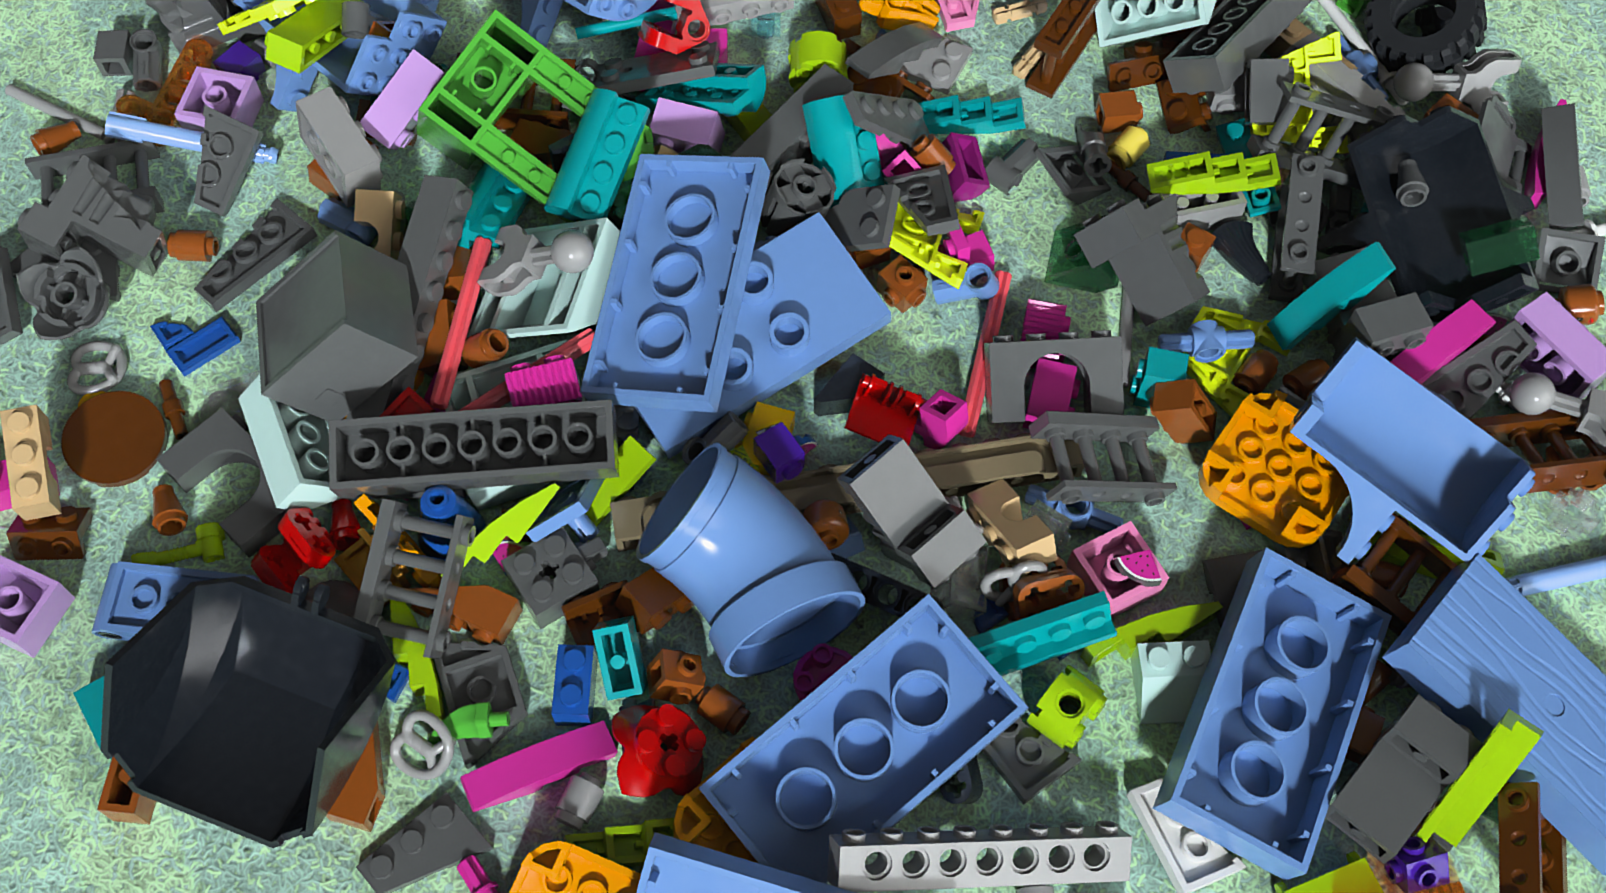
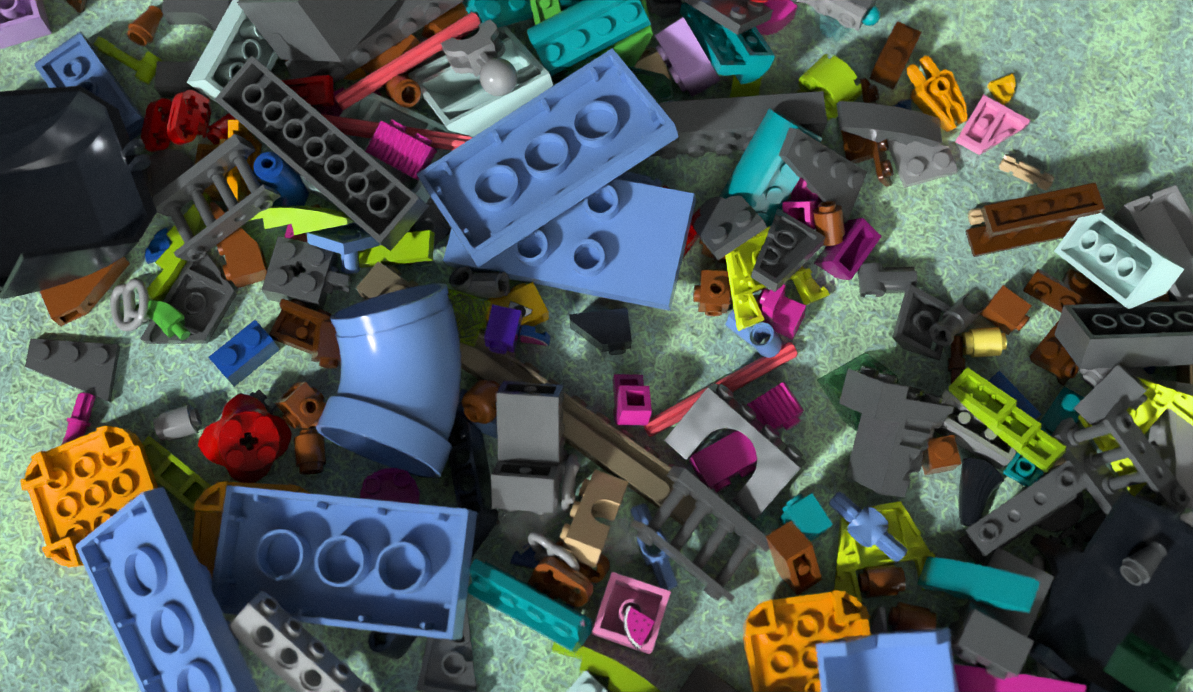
camera: 45 degrees right, 10 degrees up
(537, 766) = (175, 379): dark pink slope -> none
(620, 658) = (280, 362): teal brick -> none
(796, 195) = (711, 179): dark grey cylinder -> none
(883, 410) = (599, 366): red hinge -> none
(973, 115) = (899, 218): teal slope -> none
(1067, 688) = (484, 659): lime brick -> none
(1126, 331) = (819, 474): light grey bar -> none

